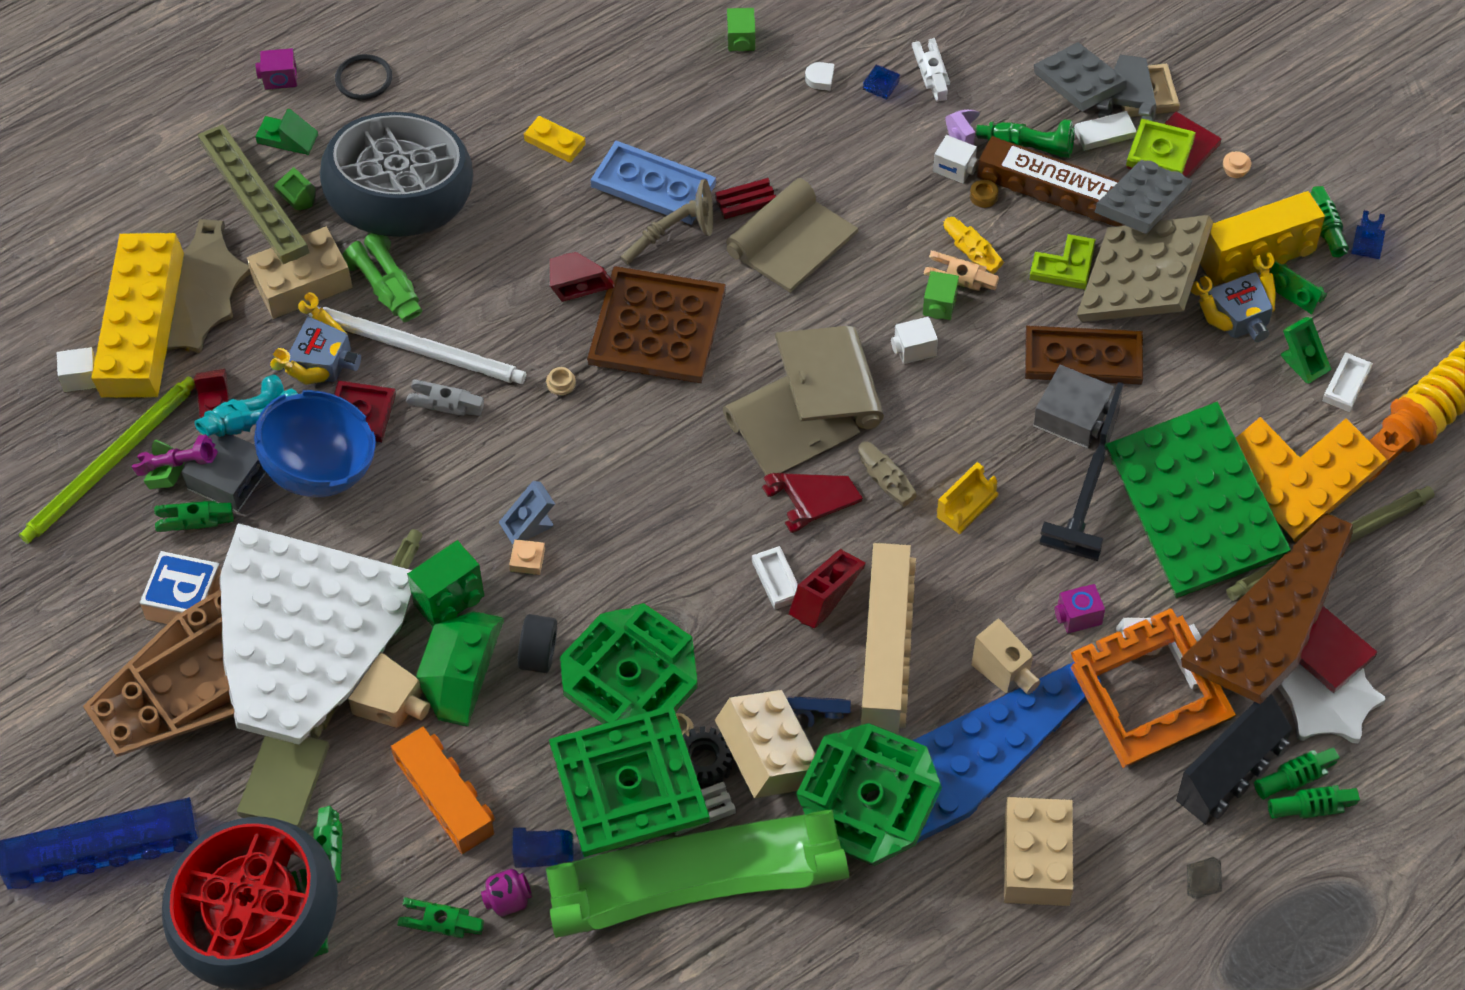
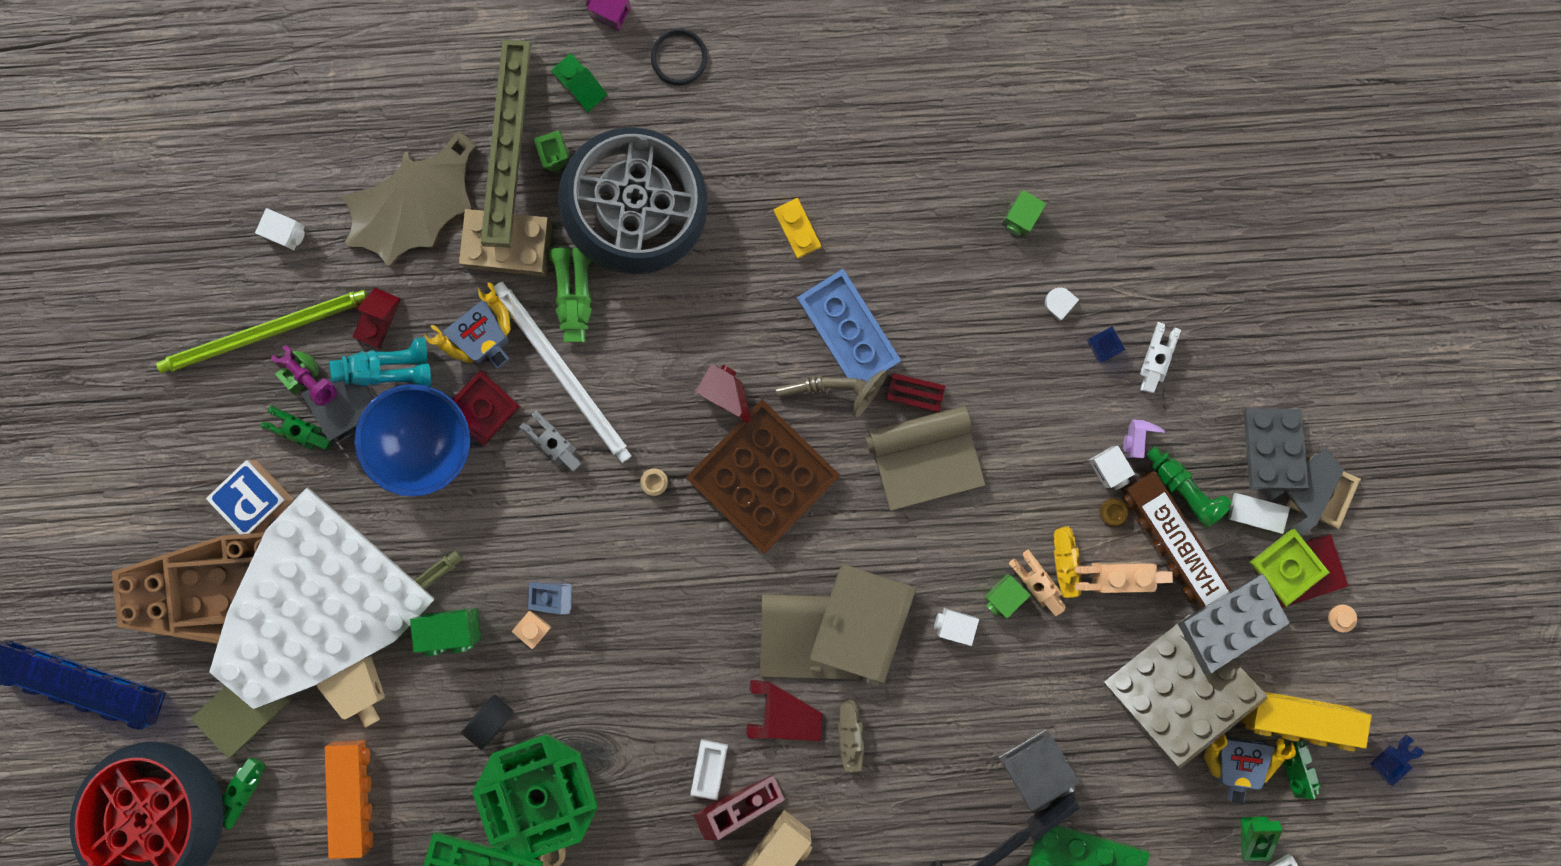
camera: 25 degrees right, 30 degrees up
(138, 315) = (350, 209): yellow brick -> none
(457, 664) = (424, 692): green wedge -> none
(967, 499) = (898, 797): yellow hinge -> none
(1027, 225) = (1123, 577): none -> light nougat hinge
(1065, 270) = (1135, 631): lime tile -> none
(1098, 353) = (1084, 720): reddish brown tile -> none
(1332, 224) = (1380, 708): green hinge -> none

